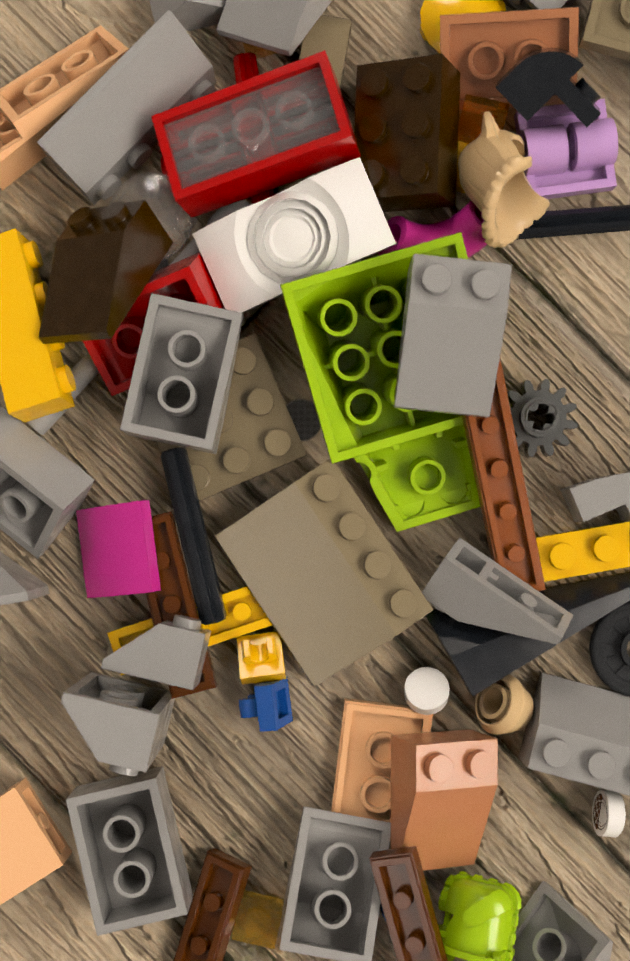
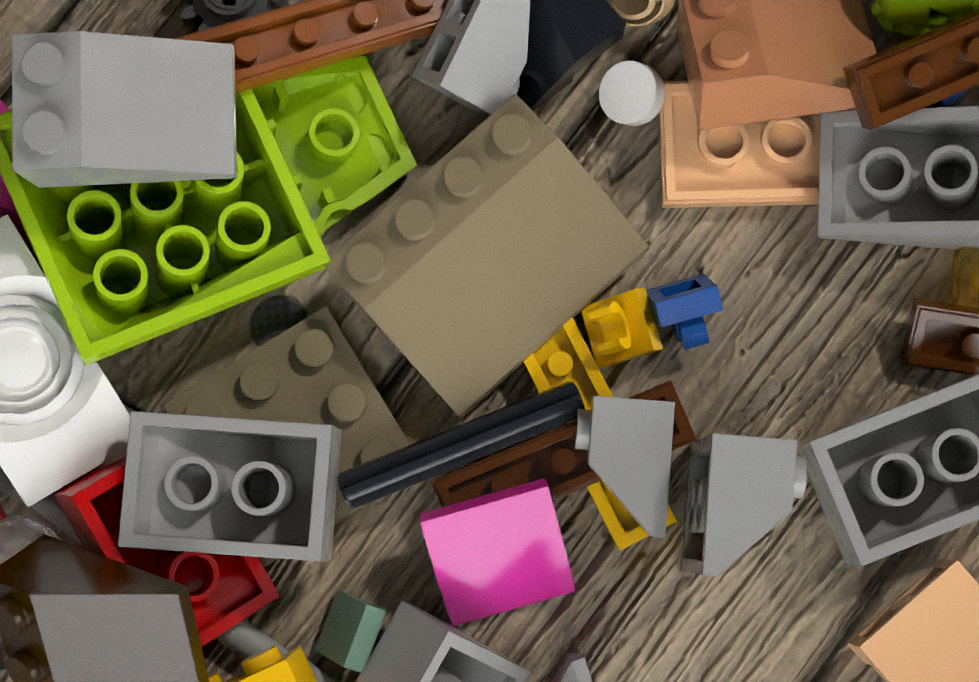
camera: 95 degrees left, 5 degrees down
(80, 441) = (350, 631): none -> sand green tile

